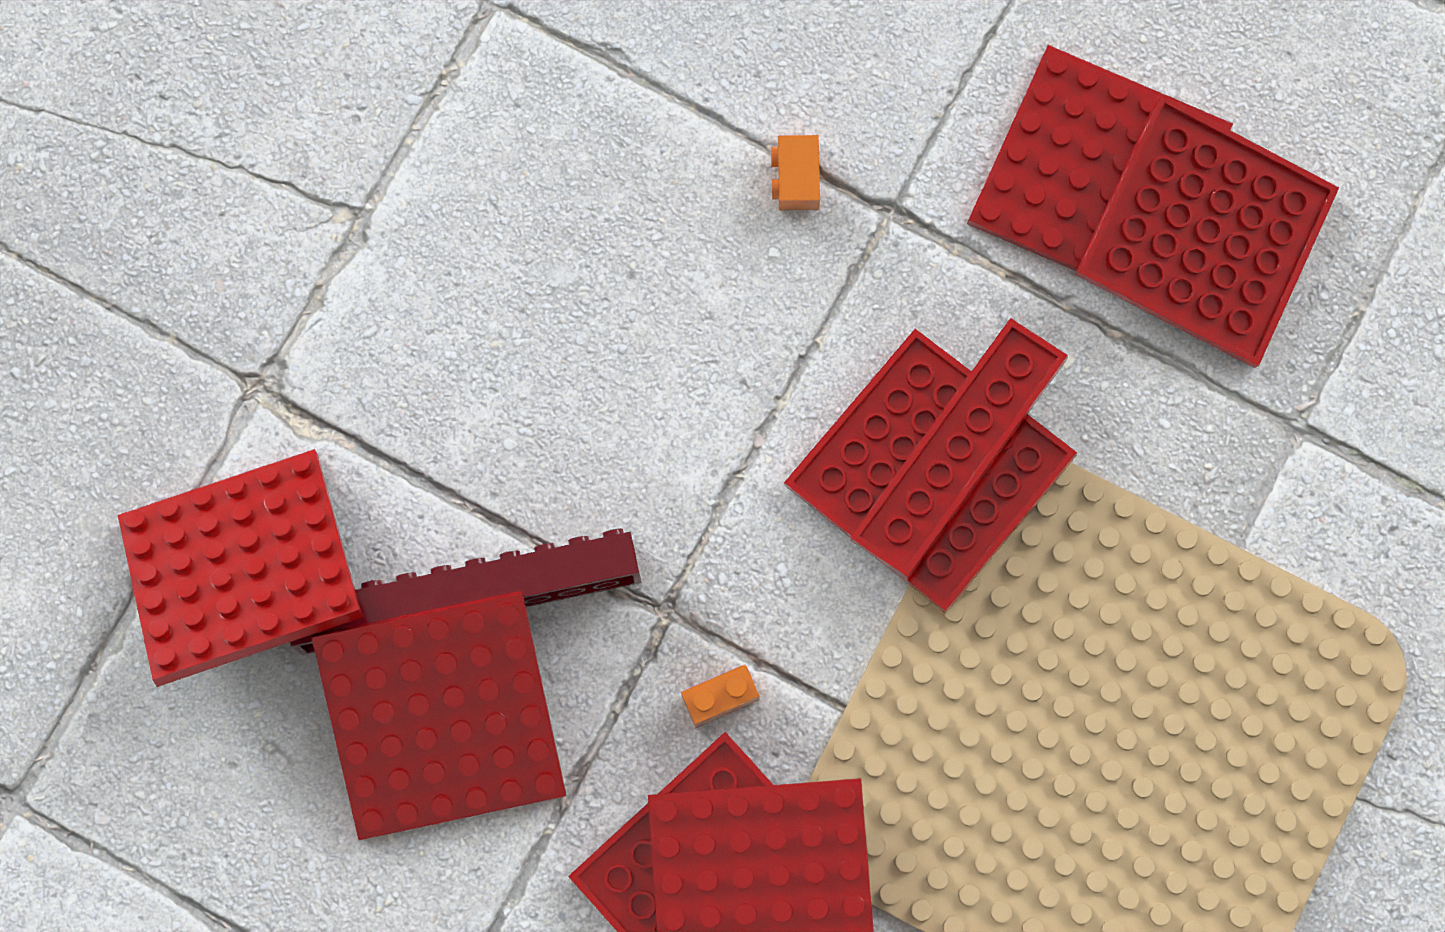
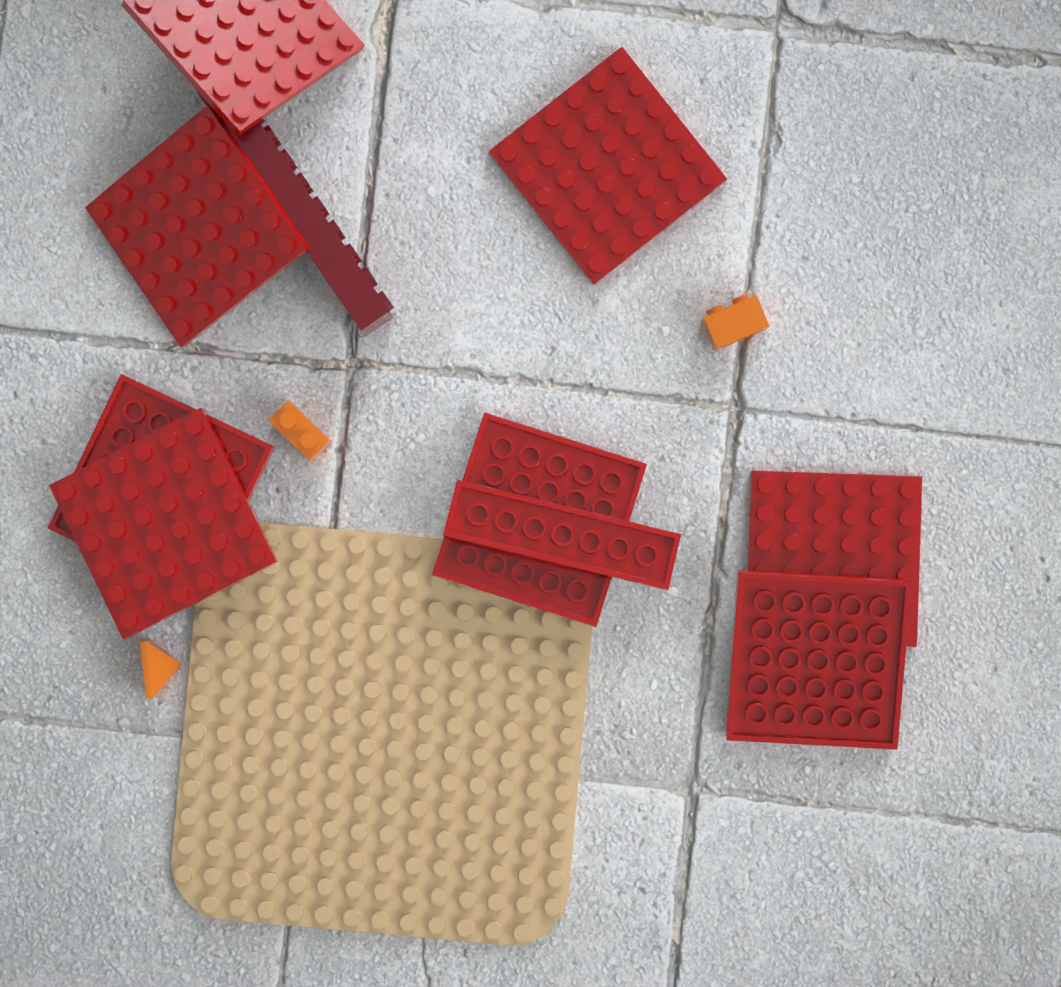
camera: 65 degrees right, 10 degrees up
(566, 241) = (607, 165): none -> red plate

